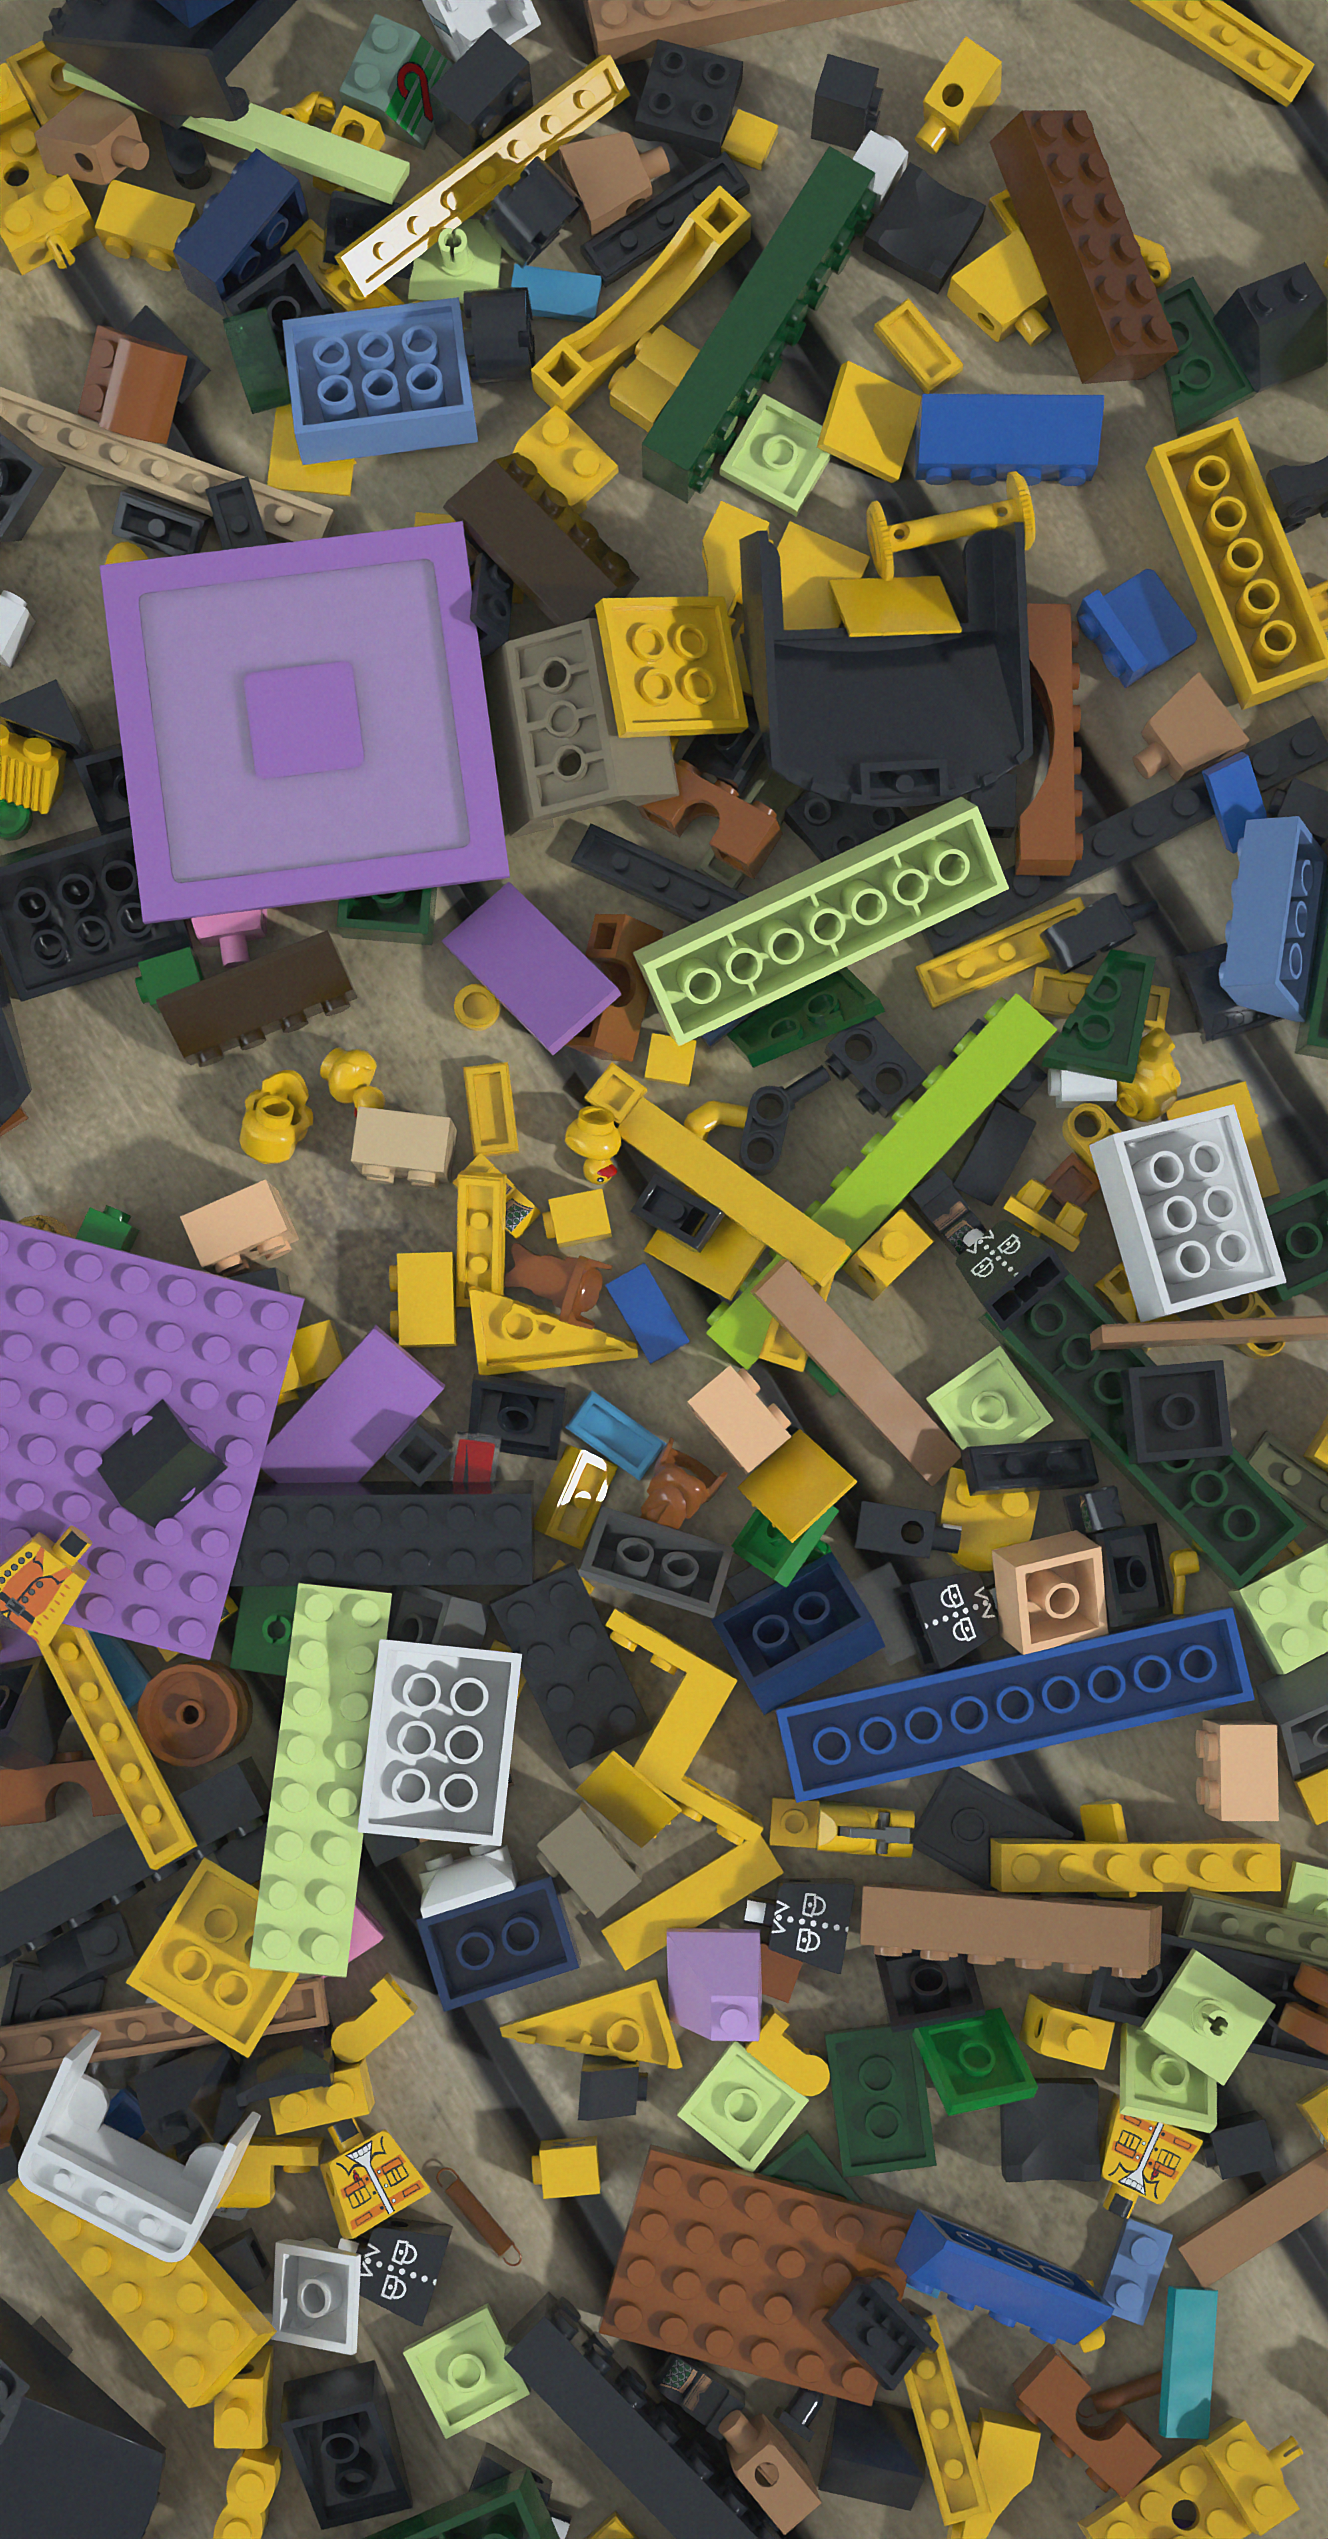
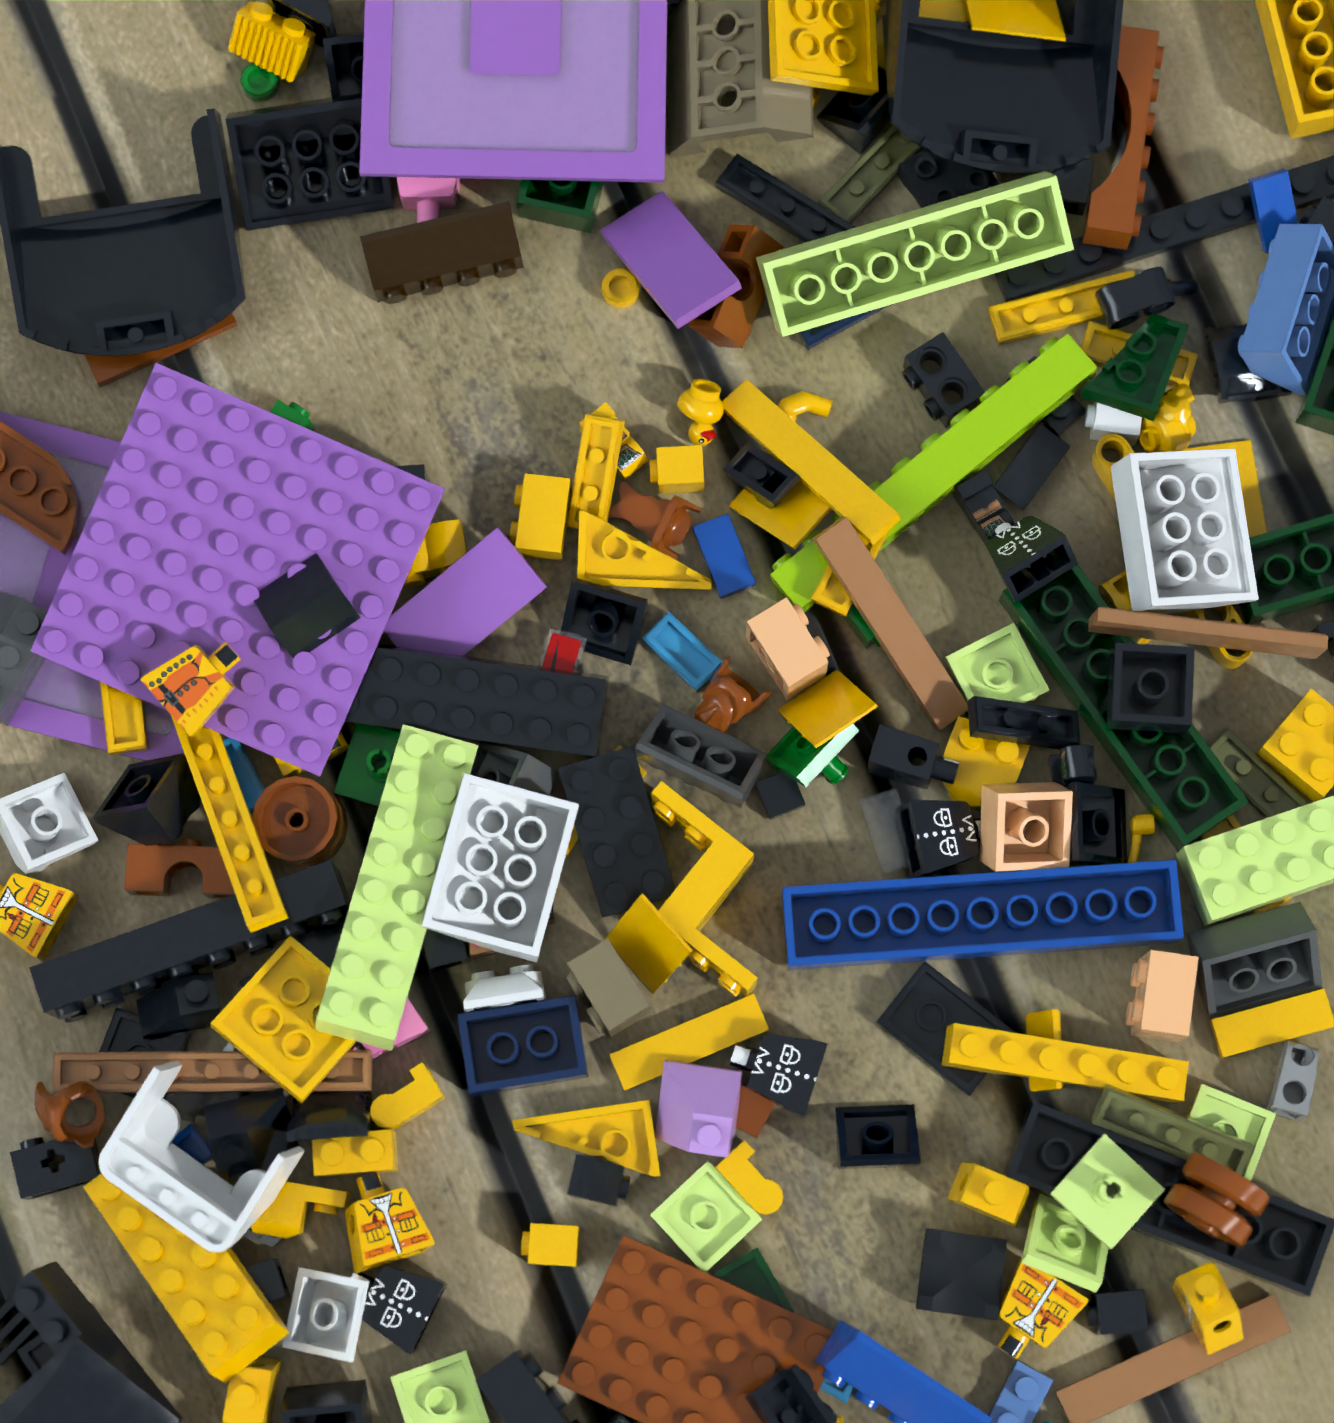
camera: 10 degrees right, 5 degrees down
(167, 974) = (368, 221): green brick -> none
(240, 1229) = (400, 432): light nougat brick -> none
(276, 1118) = (441, 352): yellow head -> none
(350, 1076) = (507, 331): yellow animal -> none
(404, 1147) = (544, 388): tan brick -> none
(419, 1450) = (518, 635): black brick -> none
(479, 2217) = (470, 1277): dark orange piece -> none
(491, 1109) = (620, 372): yellow tile -> none
(574, 1496) = (641, 696): yellow slope -> none
(616, 1092) = (725, 372): yellow tile -> none
(669, 1061) = (774, 353): yellow tile -> none
(744, 831) = (863, 174): dark orange arch -> none
(773, 1131) = (850, 420): black beam -> none
(798, 1633) = (810, 829): dark blue brick -> none
(805, 1017) = (890, 331): dark green wing -> none
(841, 1827) = (822, 998): yellow plate -> none
(879, 2100) = (822, 1228): dark green plate -> none
(888, 1253) = (932, 532): yellow torso -> none
(975, 2062) = (905, 1204): green tile -> none
(1011, 1925) = (953, 1089): medium nougat brick -> none
(1027, 1207) = (1083, 532): yellow hips -> none
(1072, 1182) = (1092, 502): dark orange tile -> none
(1136, 626) = (1211, 58): blue bracket -> none
(1189, 733) = (1242, 149): medium nougat torso -> none

